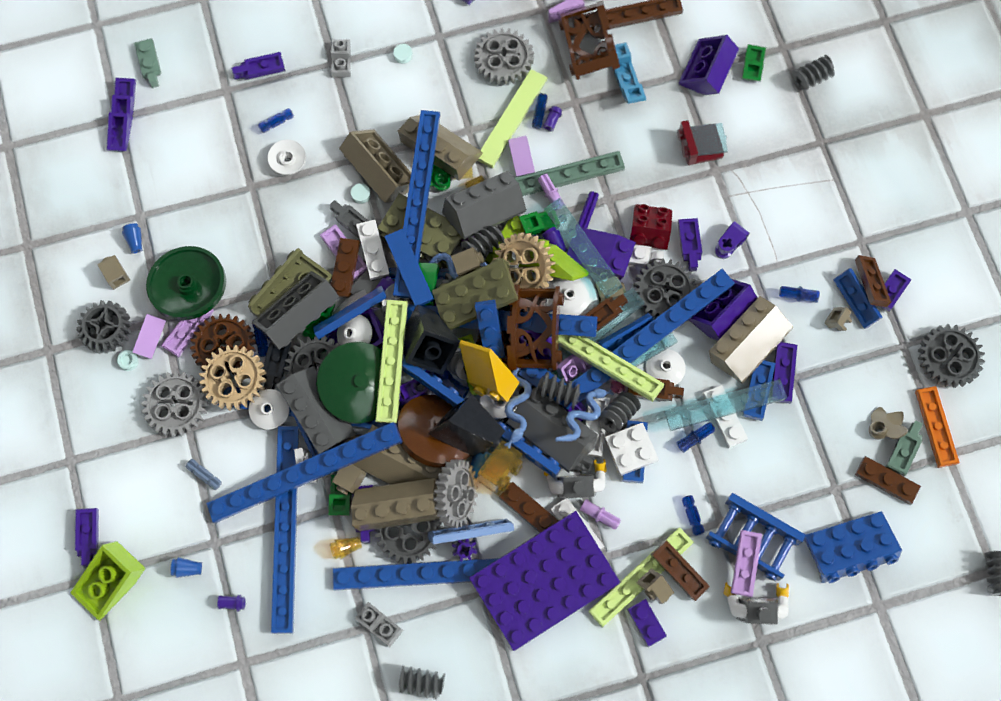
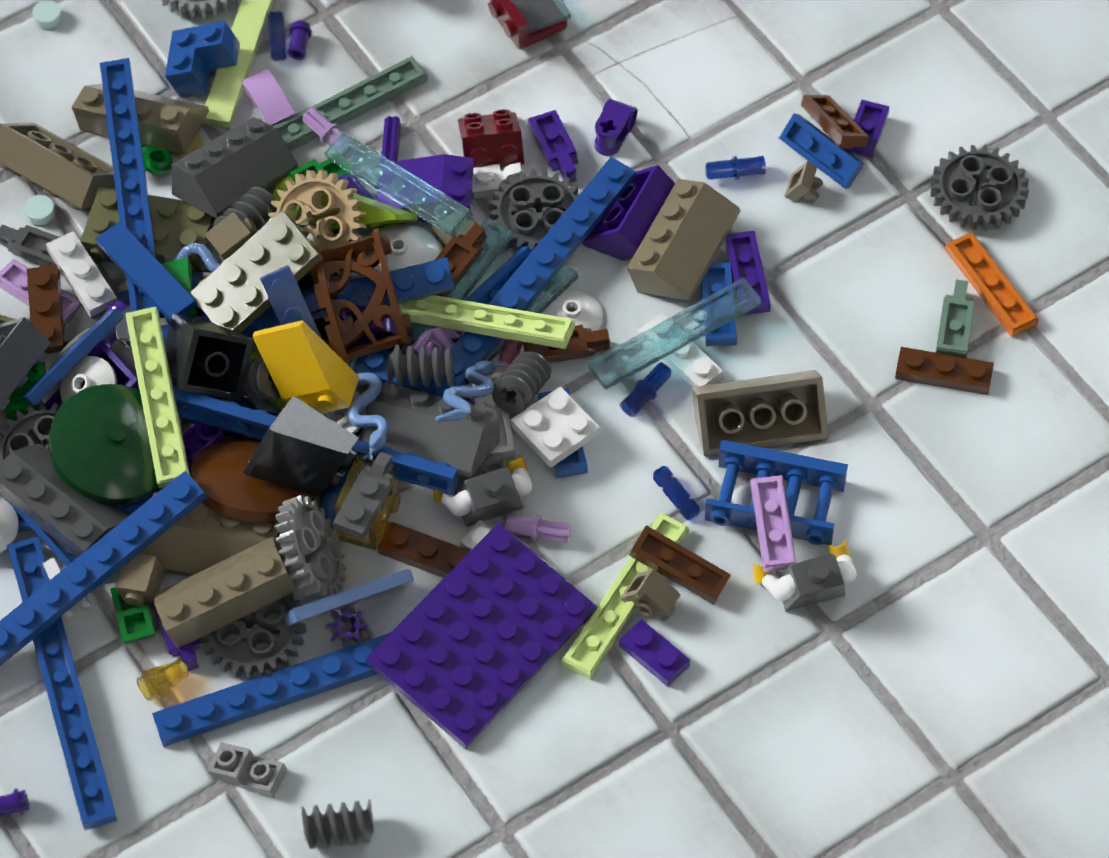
camera: 15 degrees left, 15 degrees down
(486, 111) = (196, 52): none -> blue brick
(498, 474) = (365, 498): none -> dark grey hinge
(763, 476) = (761, 411): none -> dark tan slope
(853, 547) = (924, 468): blue bracket -> none
(889, 423) = (919, 299): dark tan plate -> none

